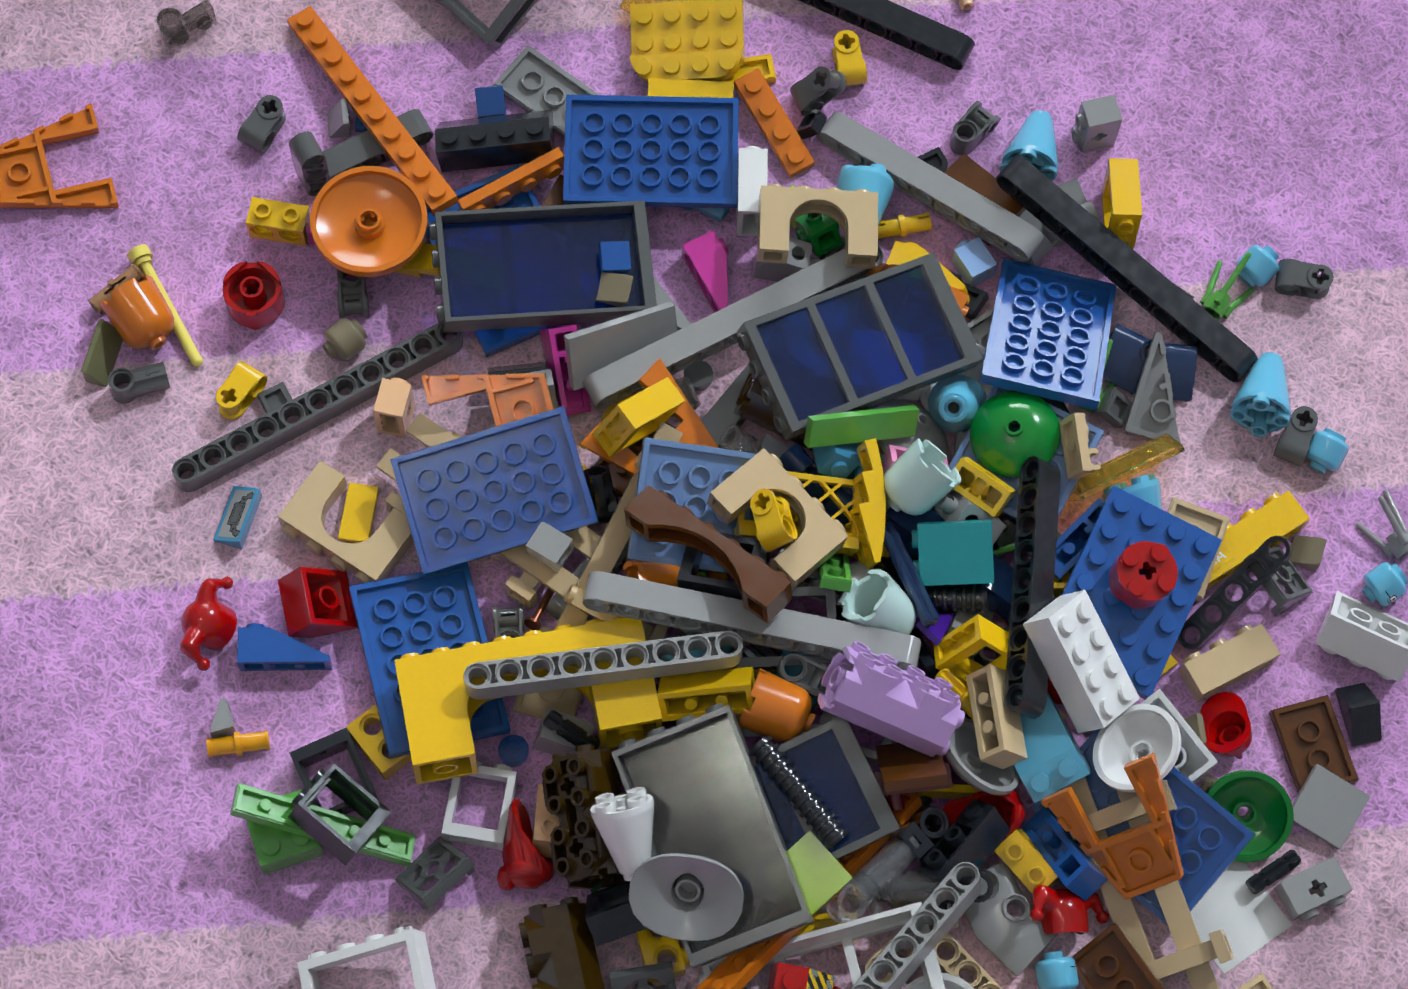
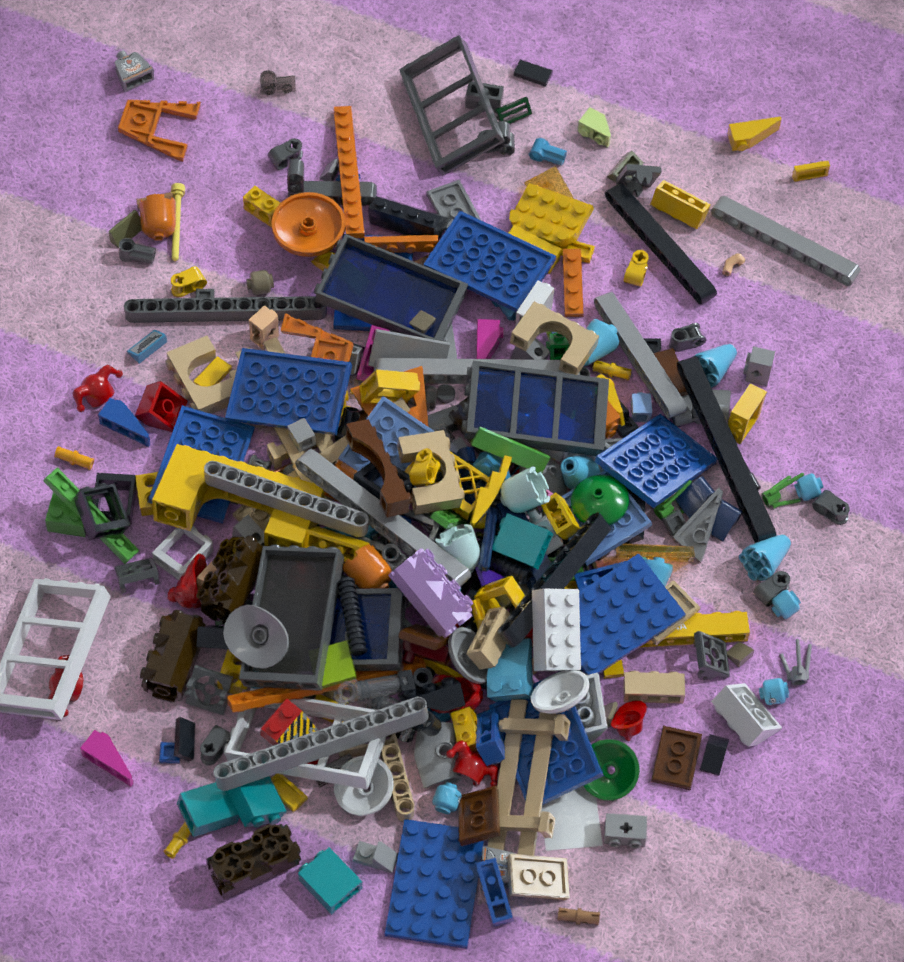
camera: 30 degrees right, 10 degrees down
(223, 721) = (73, 441): light grey slope -> none
(253, 294) = (225, 236): red brick -> none
(351, 296) = (279, 262): dark grey piece -> none
(490, 100) = (419, 198): blue tile -> none
(513, 750) = (219, 533): clear blue tile -> none
(569, 730) = (250, 528): black axle -> none
(614, 256) = (433, 305): blue tile -> none
(626, 827) = (245, 584): white cone -> none
(811, 124) = (593, 293): black tile -> none
(817, 89) = (608, 275): dark grey piece -> none
(1075, 446) = (632, 513): tan plate -> none
(1137, 857) = (528, 752): orange wing -> none
(1153, 561) = (625, 594): red brick -> none
(1248, 585) = (687, 647): black beam -> none
(1273, 871) = (594, 810): black axle -> none
(1328, 806) = (662, 791): light grey tile -> none

